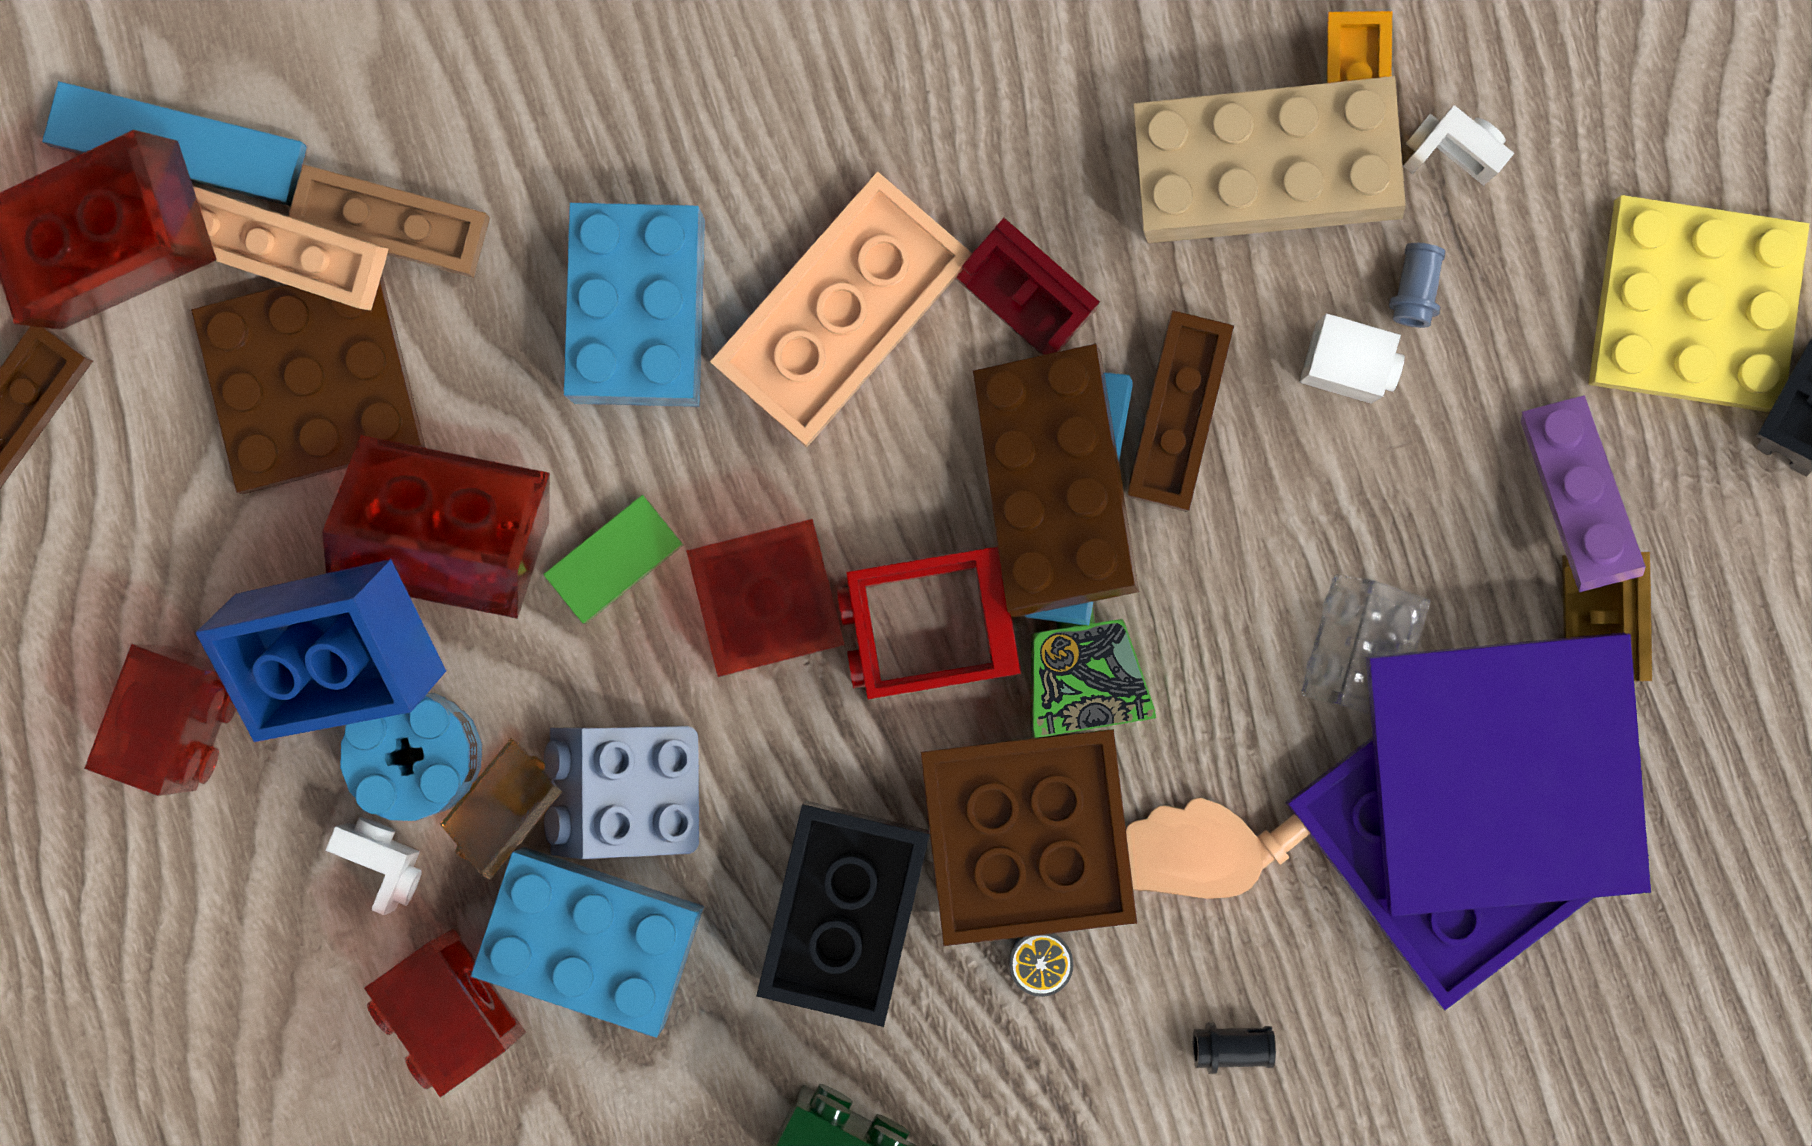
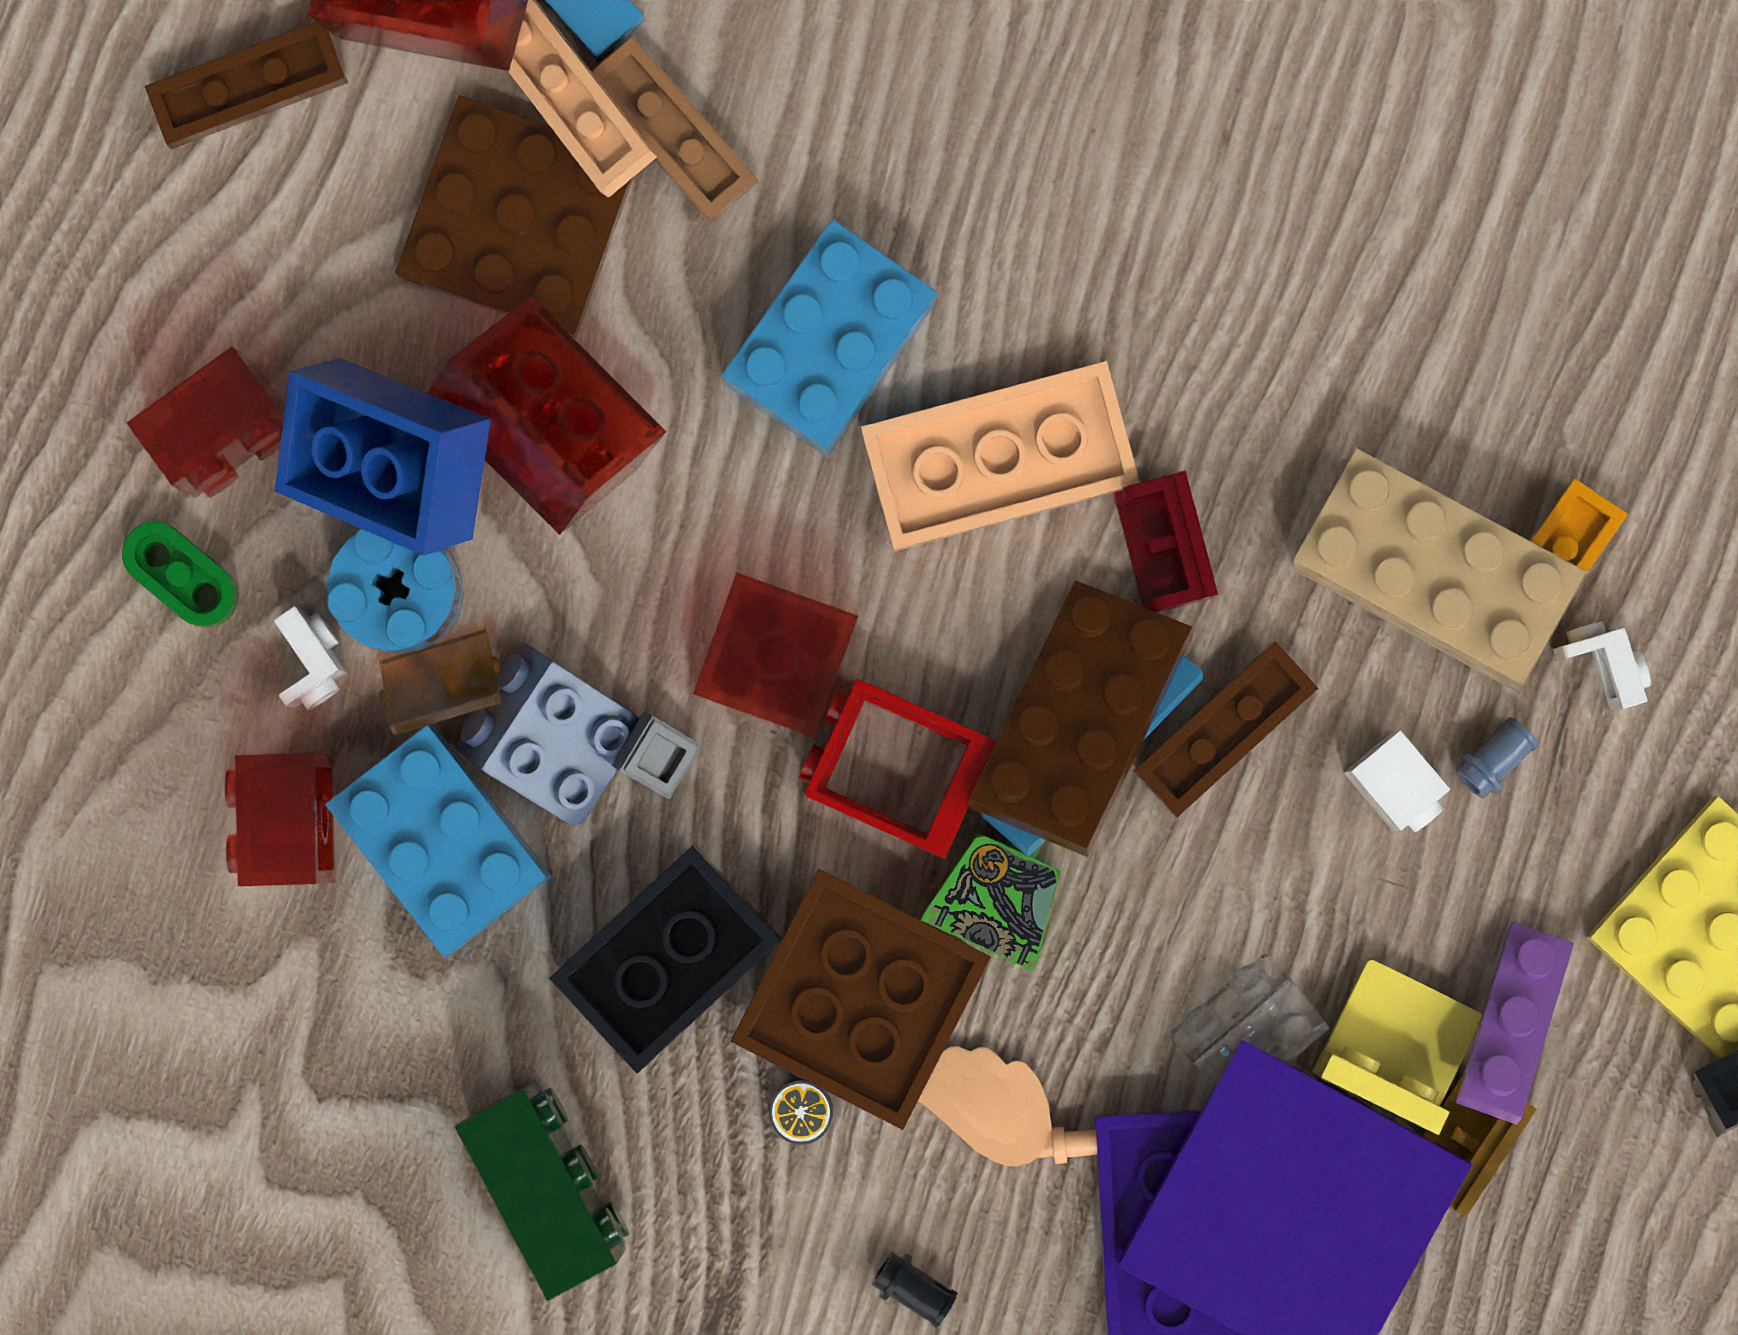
camera: 30 degrees right, 0 degrees up
(226, 863) = (181, 576): none -> green plate
(613, 559) = (670, 537): bright green tile -> none
(722, 748) = (656, 755): none -> tile
(1497, 576) = (1398, 1045): none -> light yellow bracket

